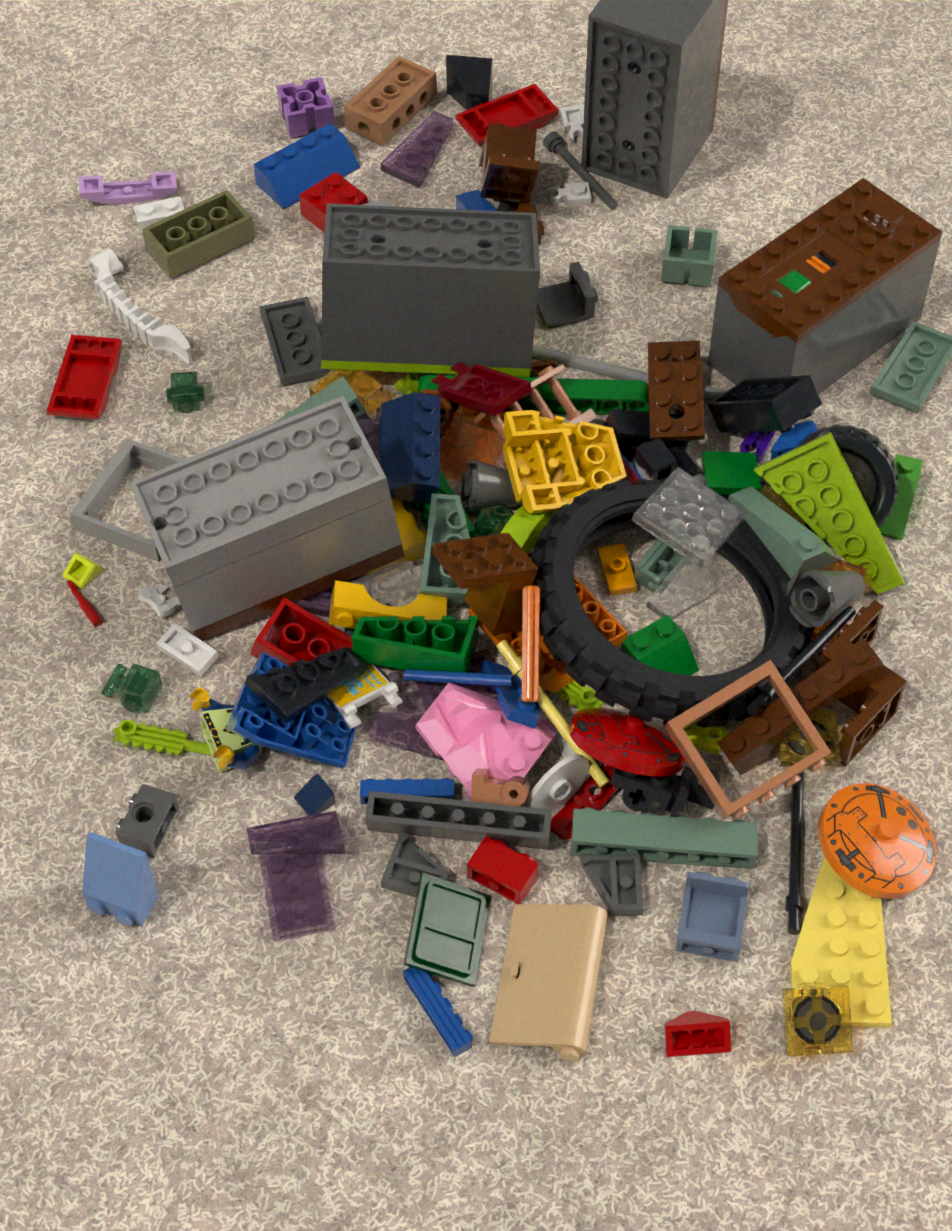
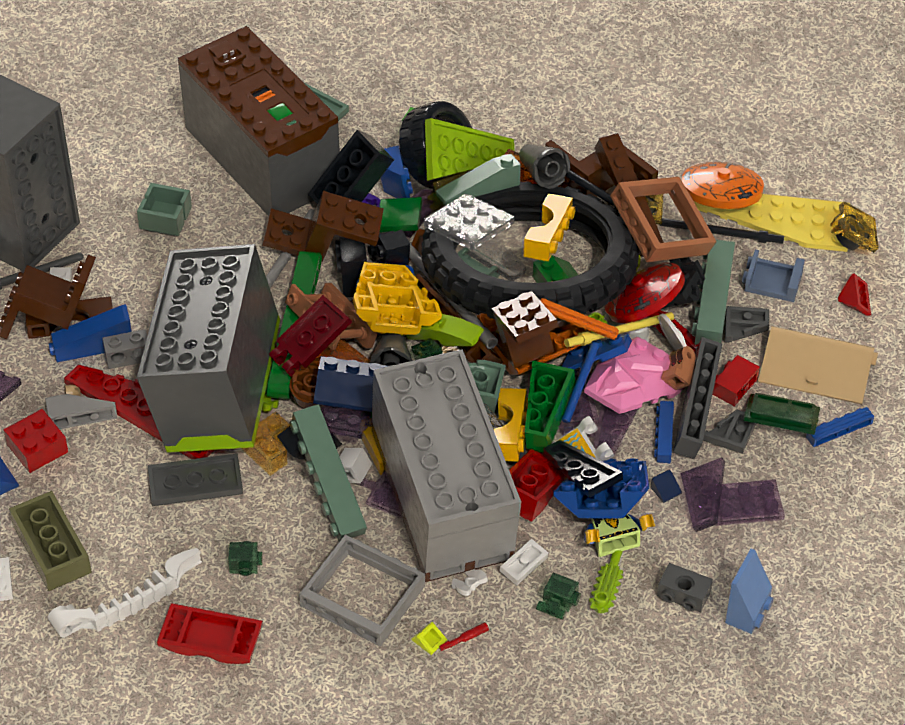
camera: 85 degrees left, 5 degrees down
(652, 588) = (543, 240): none -> yellow arch

